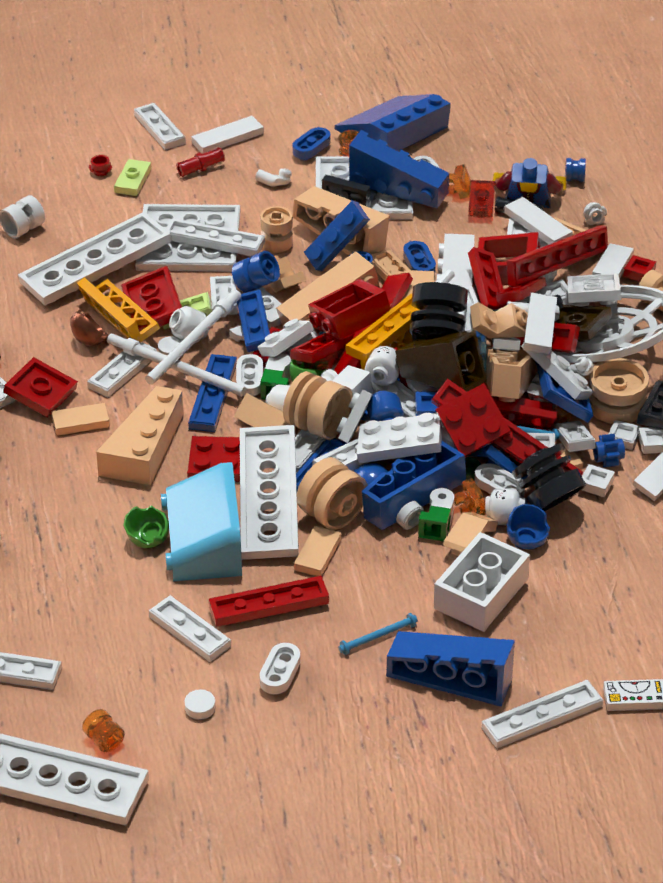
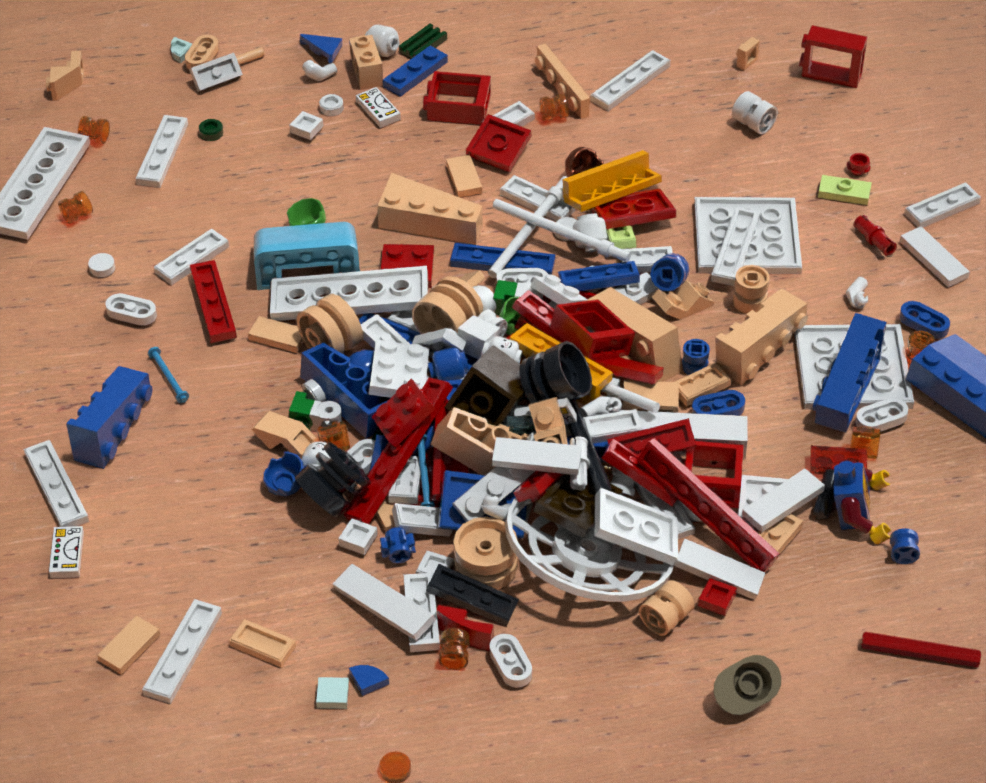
camera: 90 degrees right, 5 degrees up
(132, 241) = (694, 165): white plate -> none
(336, 235) = (721, 321): blue plate -> none
(349, 190) = (822, 344): black panel -> none
(481, 581) = (210, 435): white brick -> none
(593, 208) = (819, 560): white plate -> none

